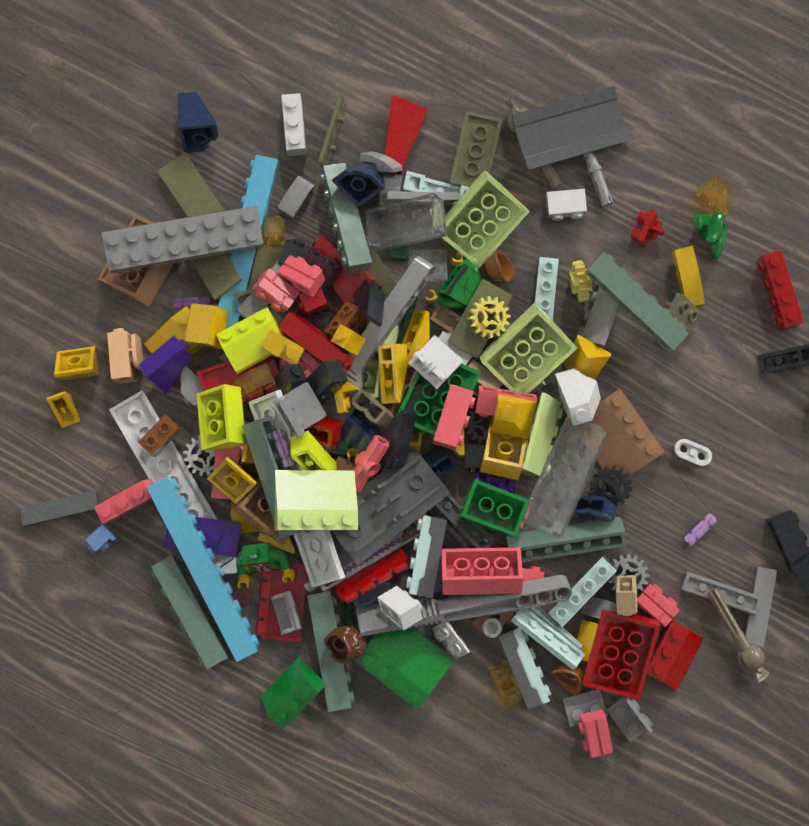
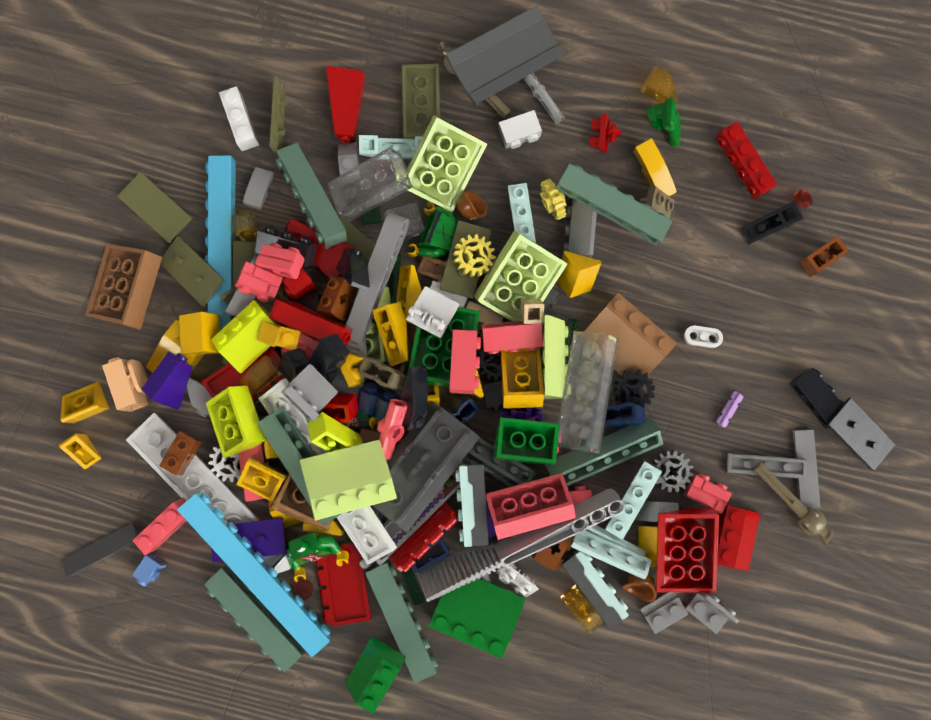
camera: 15 degrees left, 0 degrees up
(179, 304) = (169, 319): medium lavender axle -> none
(182, 239) = (153, 255): light grey brick -> none
(195, 123) = (141, 141): dark blue slope -> none
(282, 448) = (302, 435): lavender axle -> none
(286, 612) = (350, 594): light grey hinge -> none
(345, 644) = (414, 613): reddish brown hair -> none
(348, 339) = (341, 312): yellow brick -> none
(360, 182) = (315, 156): dark blue slope -> none
(383, 162) = (333, 132): light grey slope -> none
(396, 196) = (353, 161): light grey tile -> none
(400, 607) = (459, 563): white brick -> none
(491, 627) = (554, 558): light grey tile -> none
(513, 416) = (522, 346): yellow slope -> none
(531, 385) = (532, 311): none -> tan brick
(578, 395) = (579, 310): white slope -> none
(596, 733) = (682, 635): coral brick -> none
(626, 595) = (678, 492): tan brick -> none

